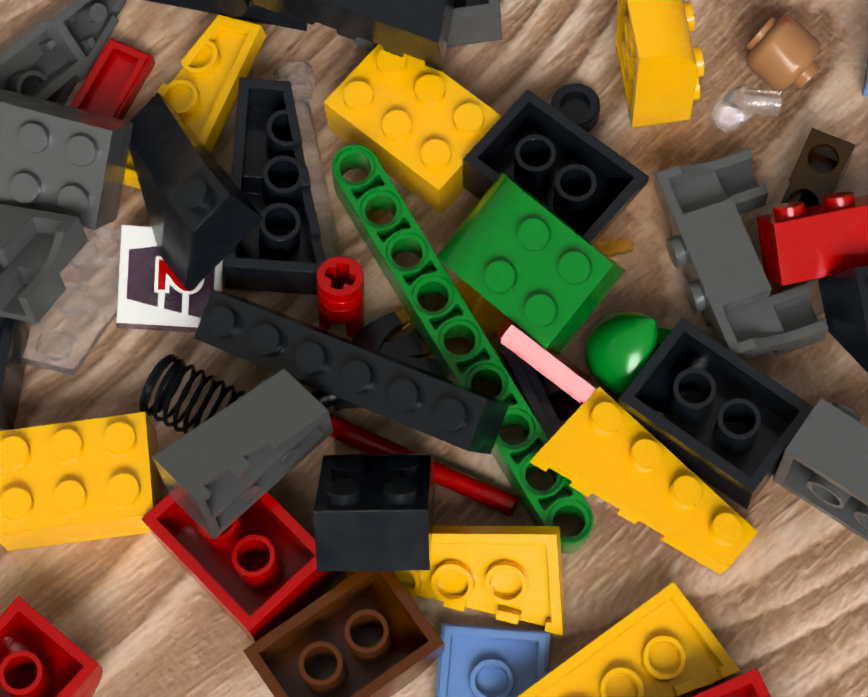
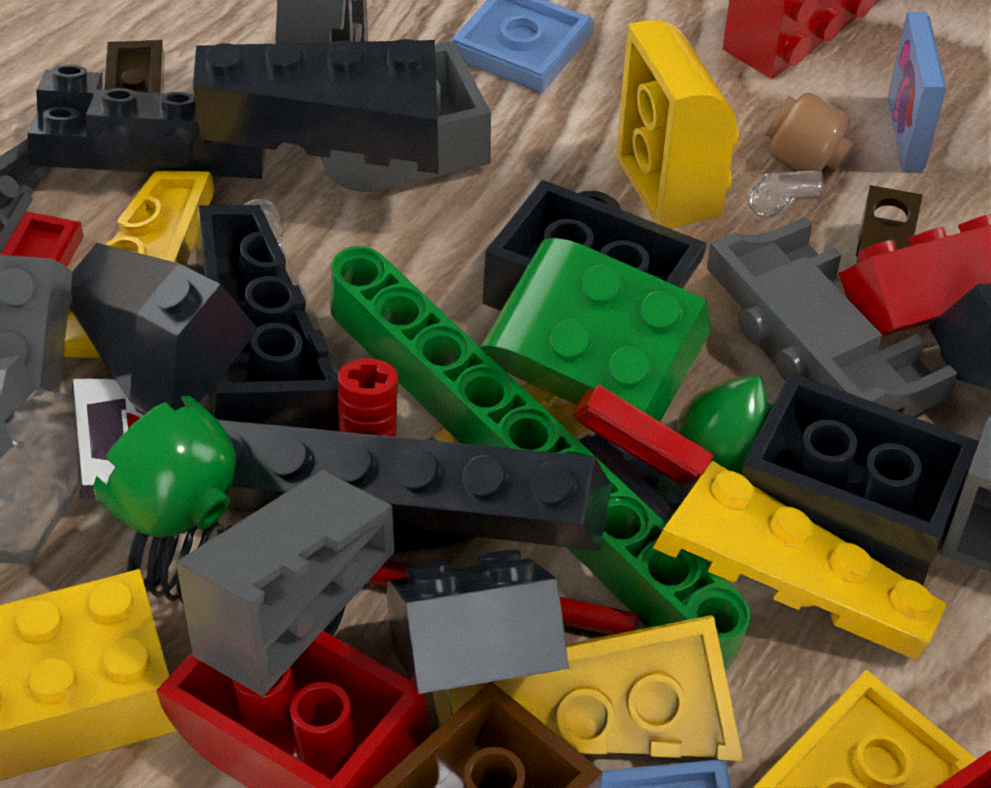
camera: 20 degrees left, 20 degrees down
(174, 348) = (170, 471): none -> green cylinder
(411, 121) = (418, 225): yellow brick -> none

